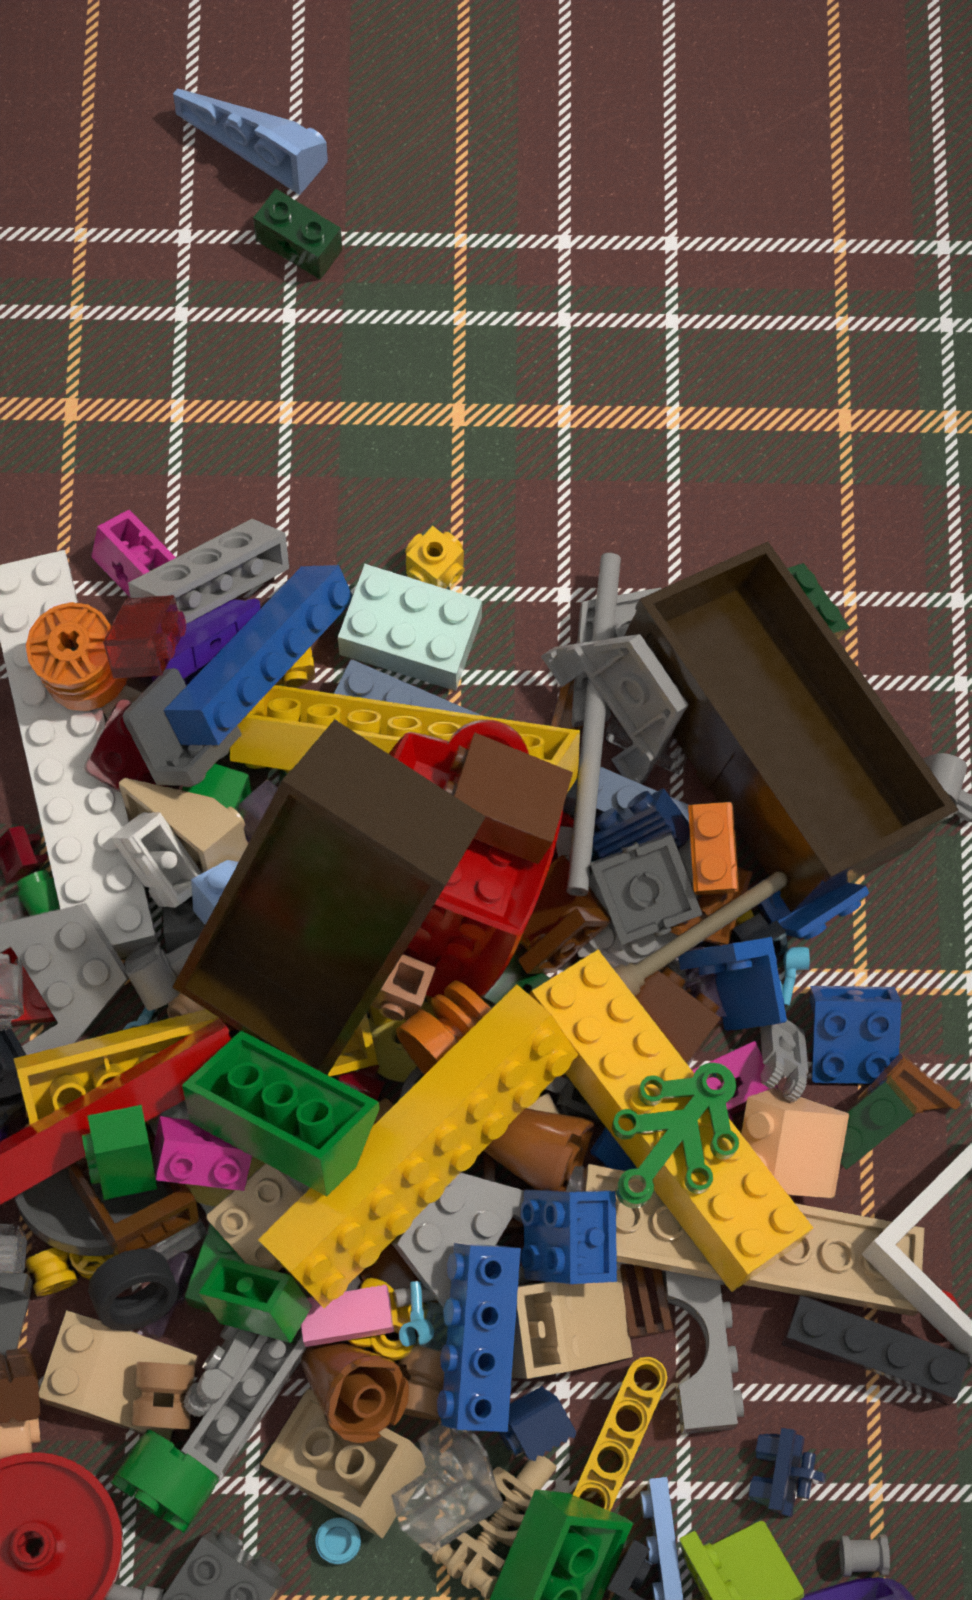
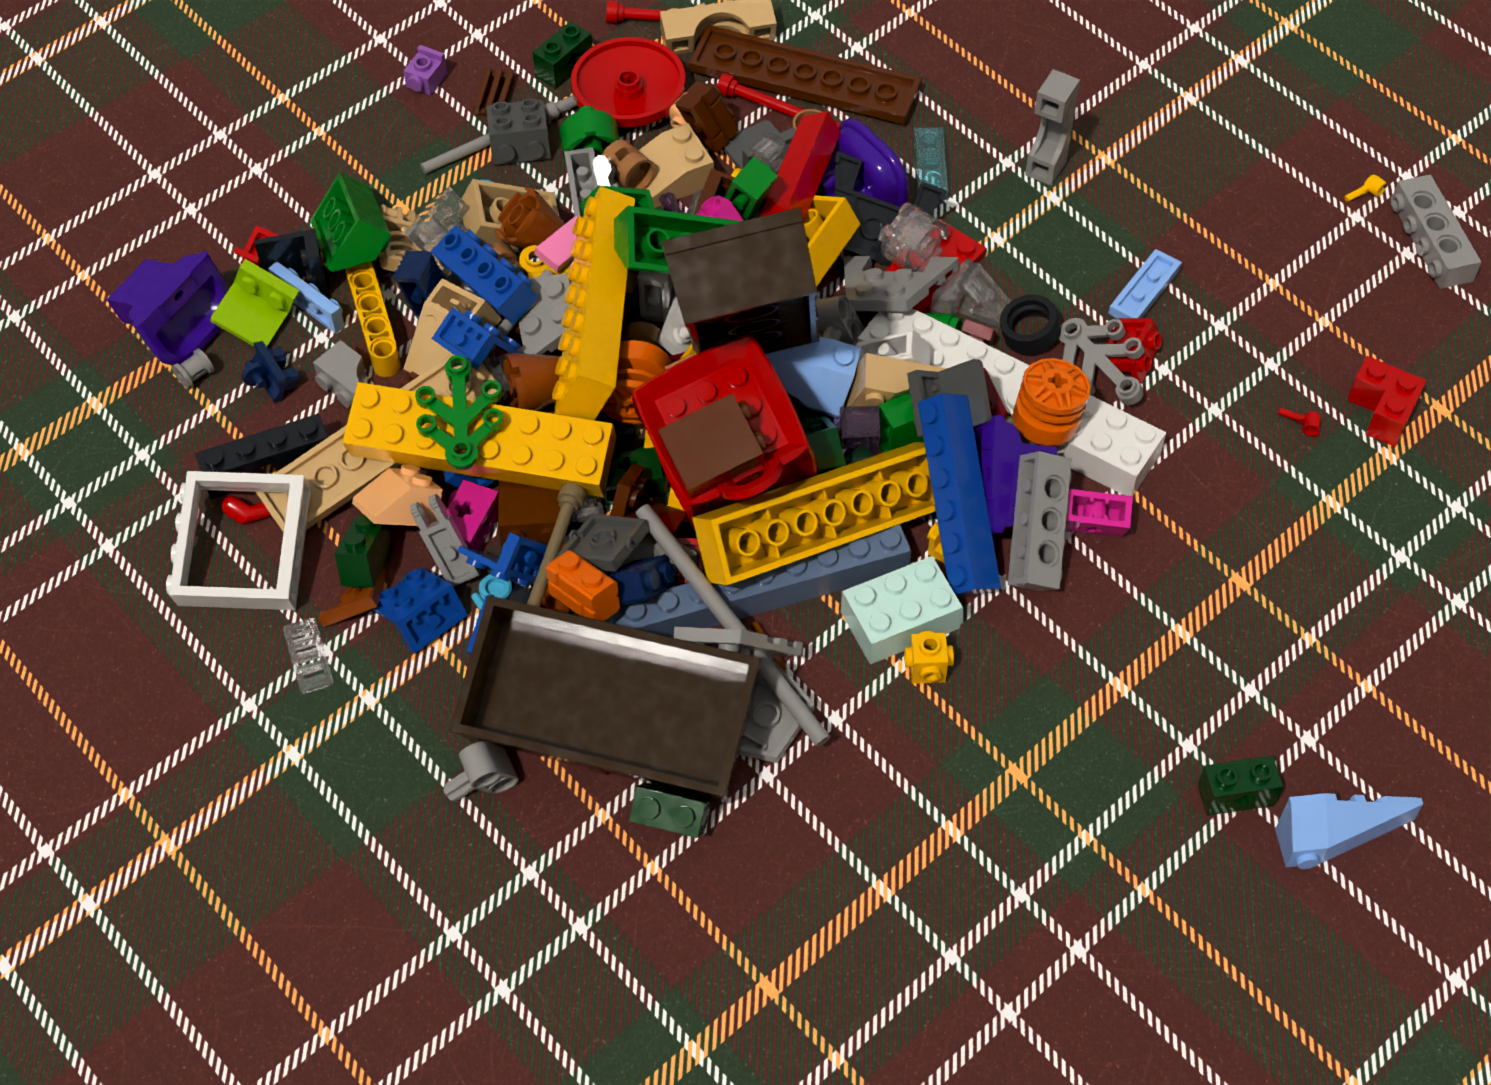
camera: 140 degrees right, 15 degrees down
(124, 1272) = (687, 183): black tyre -> none
(144, 636) = (1022, 419): clear red brick -> none
(423, 1326) = (522, 263): medium azure hand -> none

